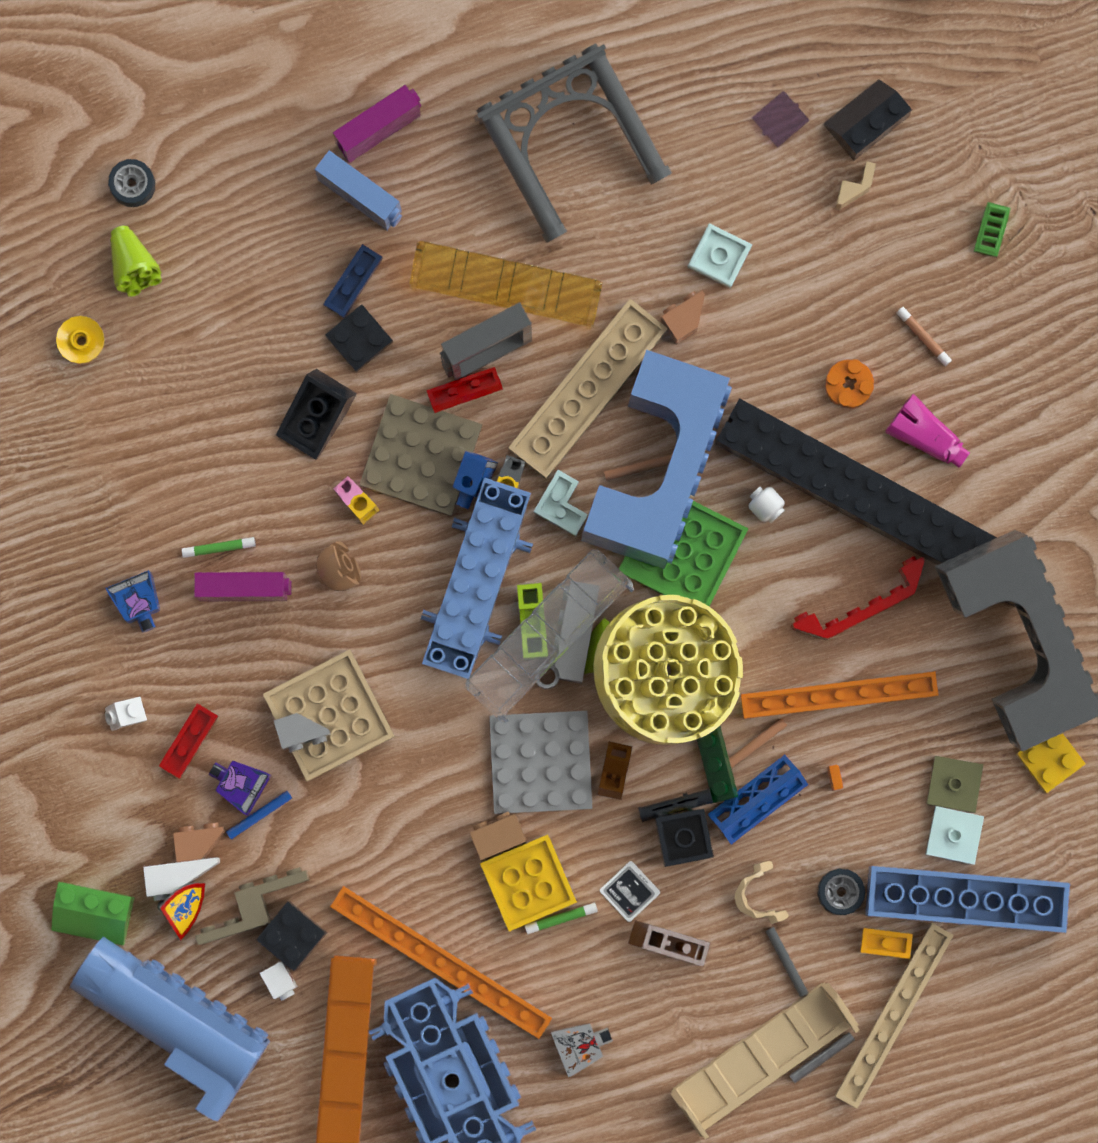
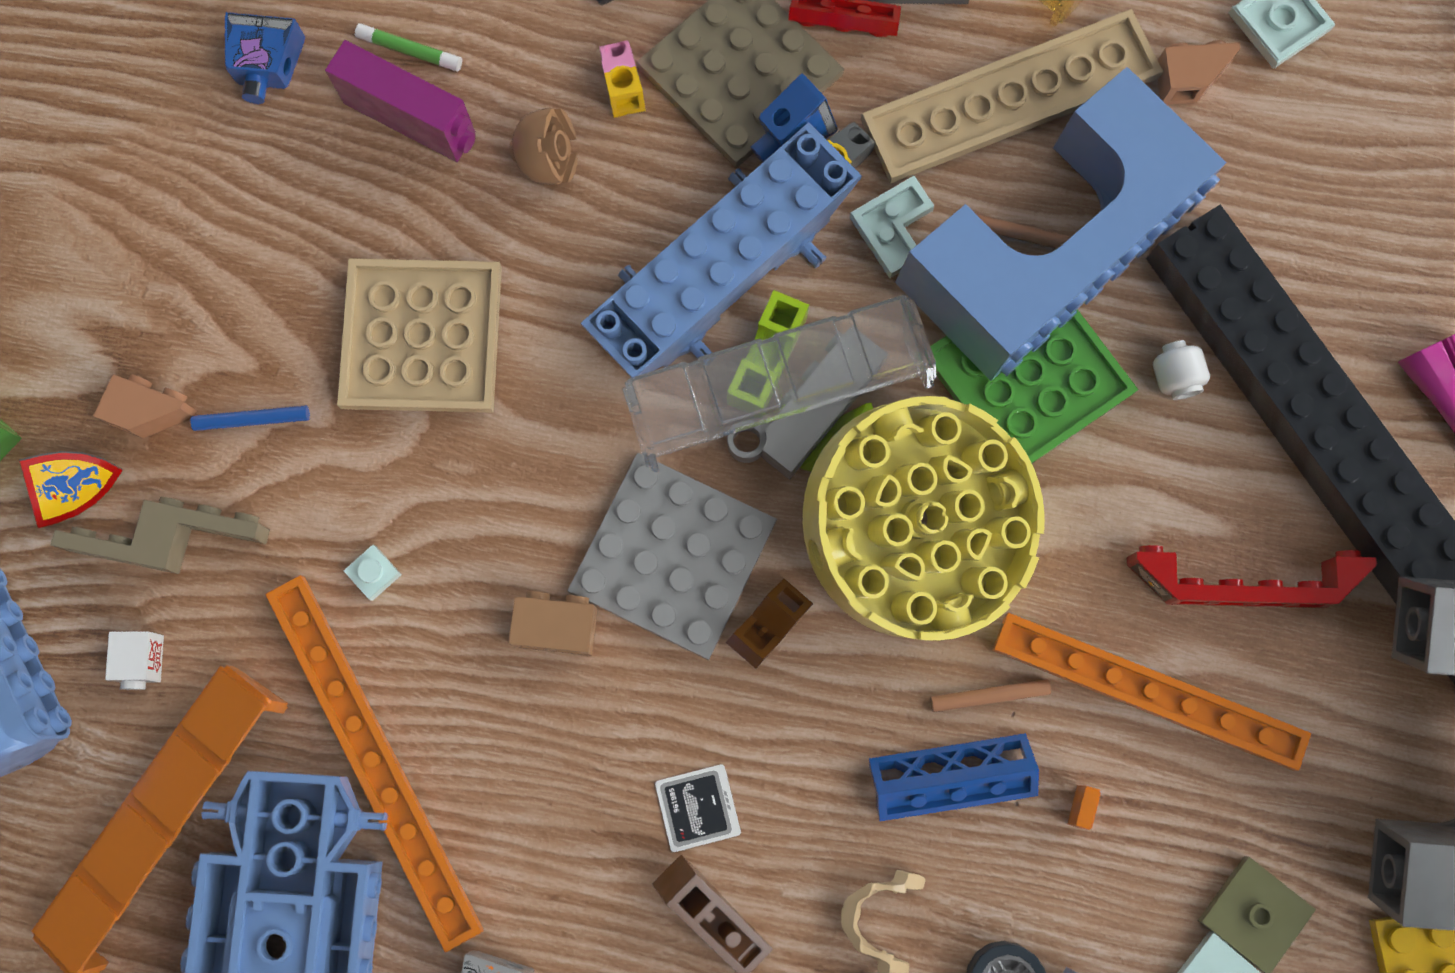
camera: 30 degrees right, 5 degrees down
(125, 713) = (157, 189): white bracket -> none
(167, 878) = (70, 430): white slope -> none
(188, 741) = (215, 269): red plate -> none
(240, 784) = (246, 363): torso -> none
(291, 936) = (188, 605): black brick -> none
(298, 730) = (359, 326): light grey slope -> none
(380, 862) = (372, 572): none -> light aqua plate
(528, 882) = (559, 715): yellow plate -> none
(561, 918) = (578, 792): bright green bar -> none
(675, 805) = (830, 720): black pin -> none
(684, 837) = (817, 773): black brick -> none
(717, 766) = (920, 696): dark green plate -> none
(845, 396) = (1393, 257): orange plate -> none

